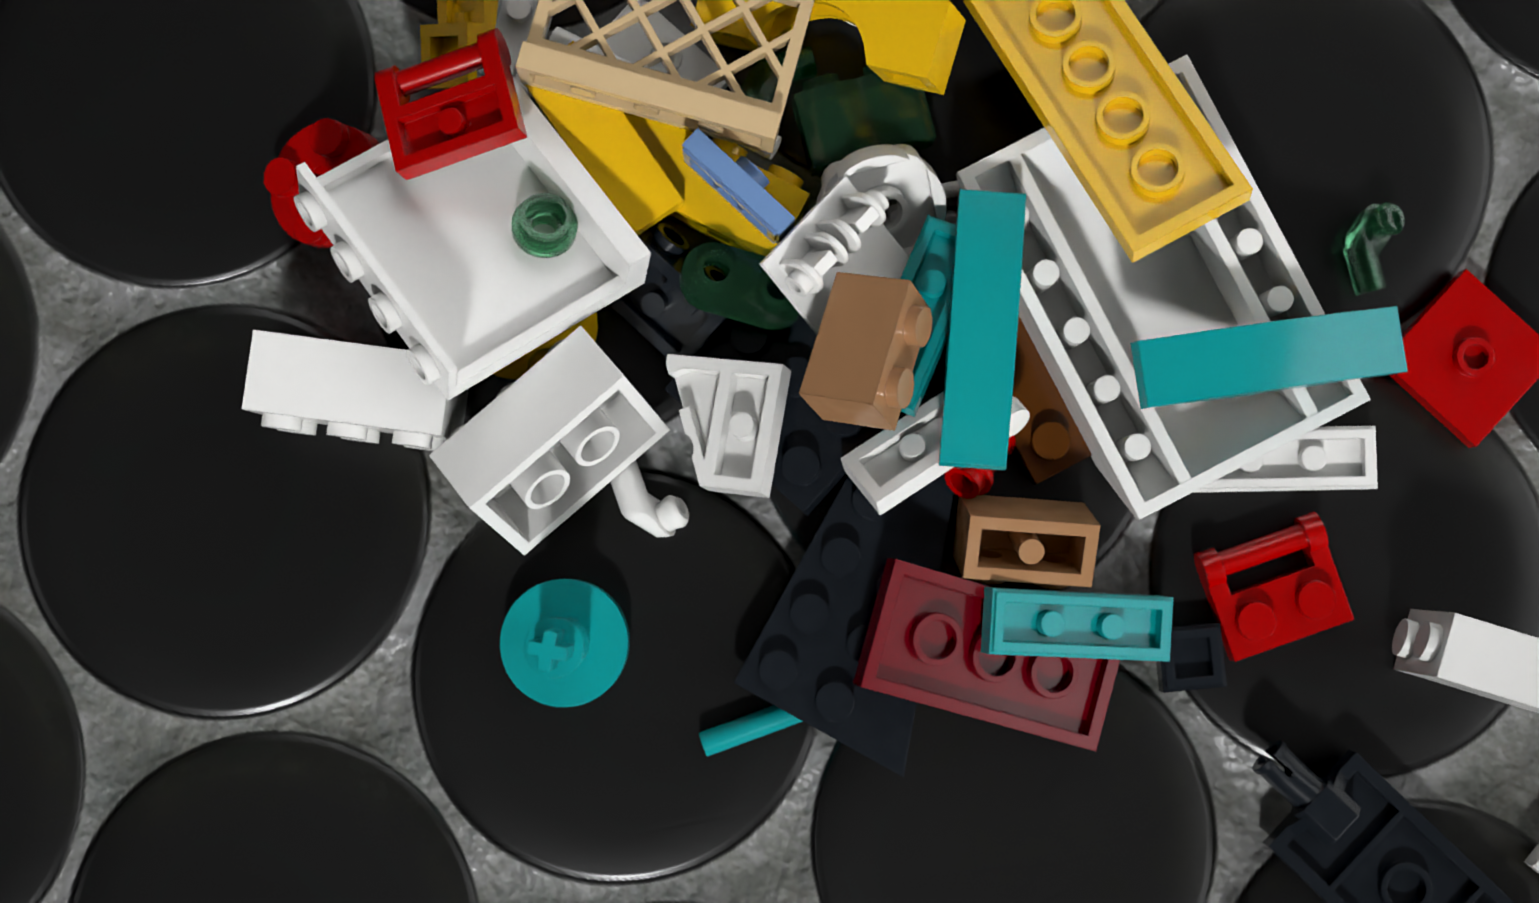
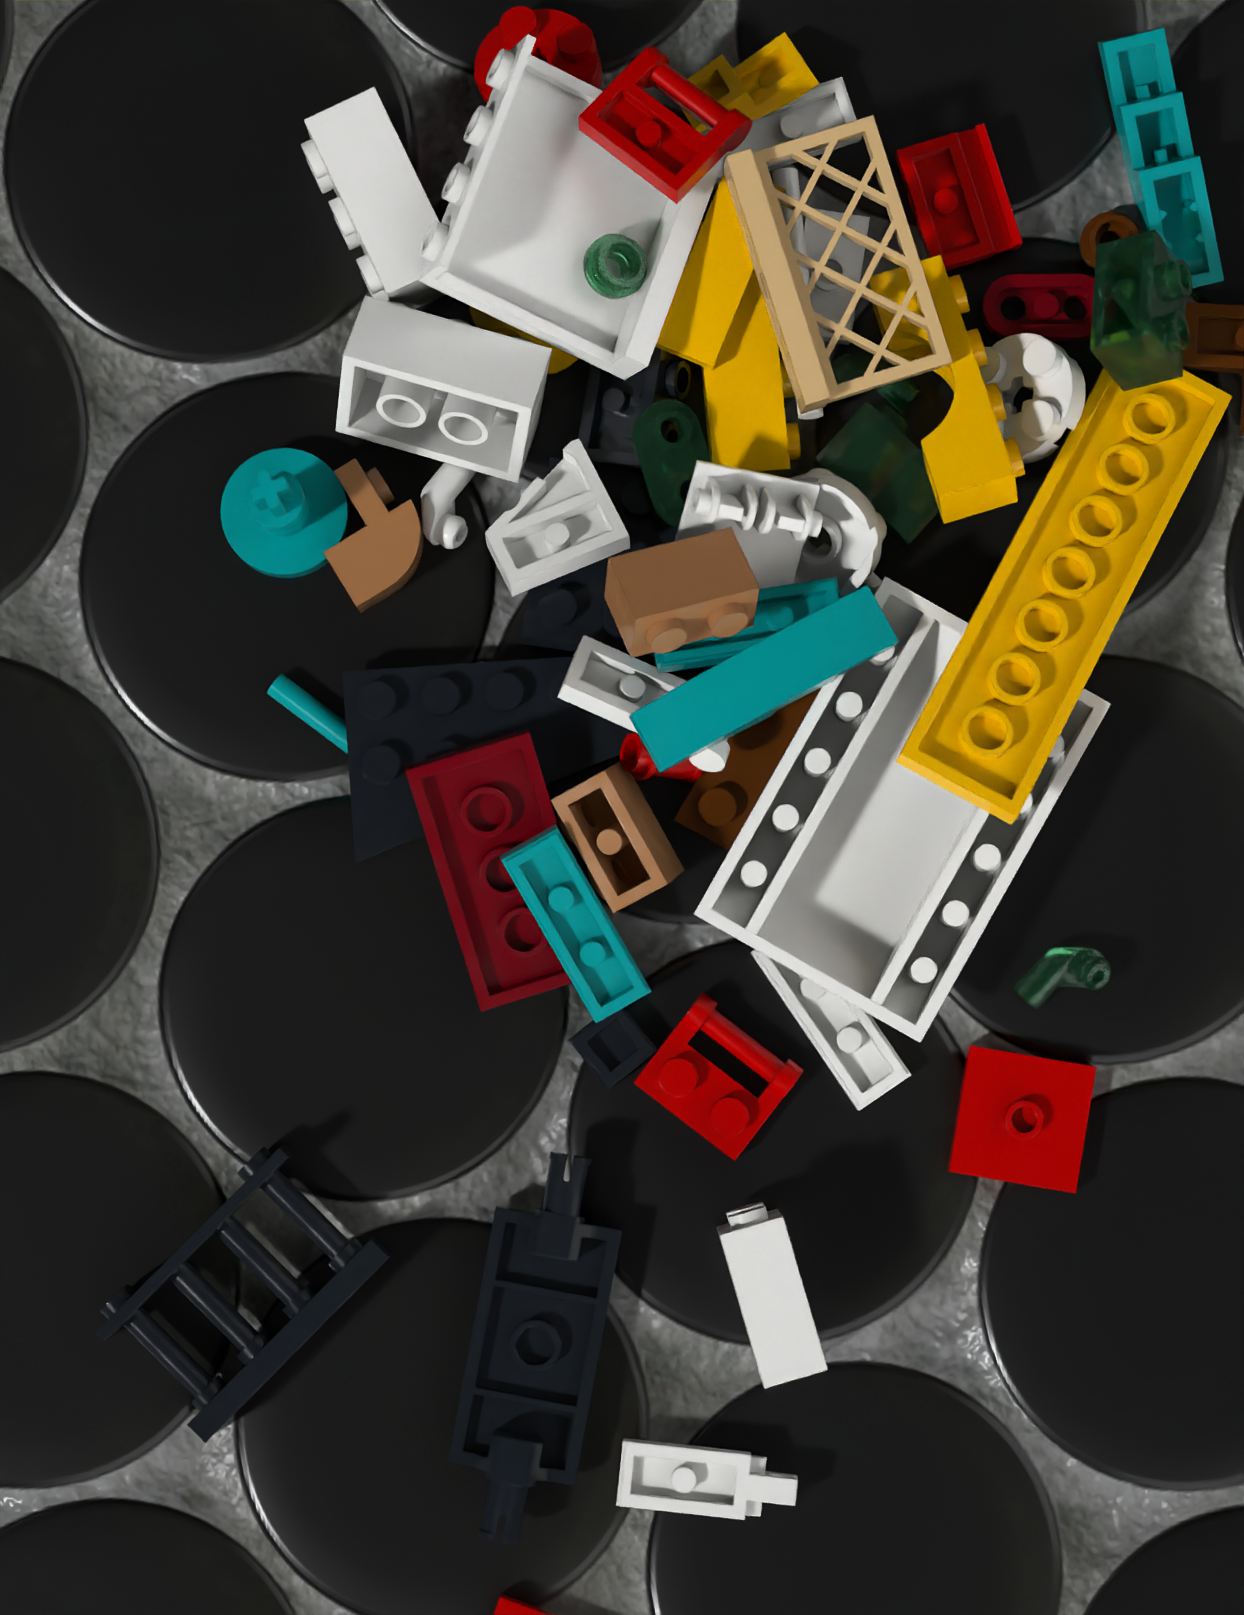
camera: 65 degrees right, 0 degrees up
(654, 578) = (386, 550): none -> medium nougat brick
(739, 184) = (756, 402): medium blue plate -> none
(1268, 357) = (895, 928): teal slope -> none

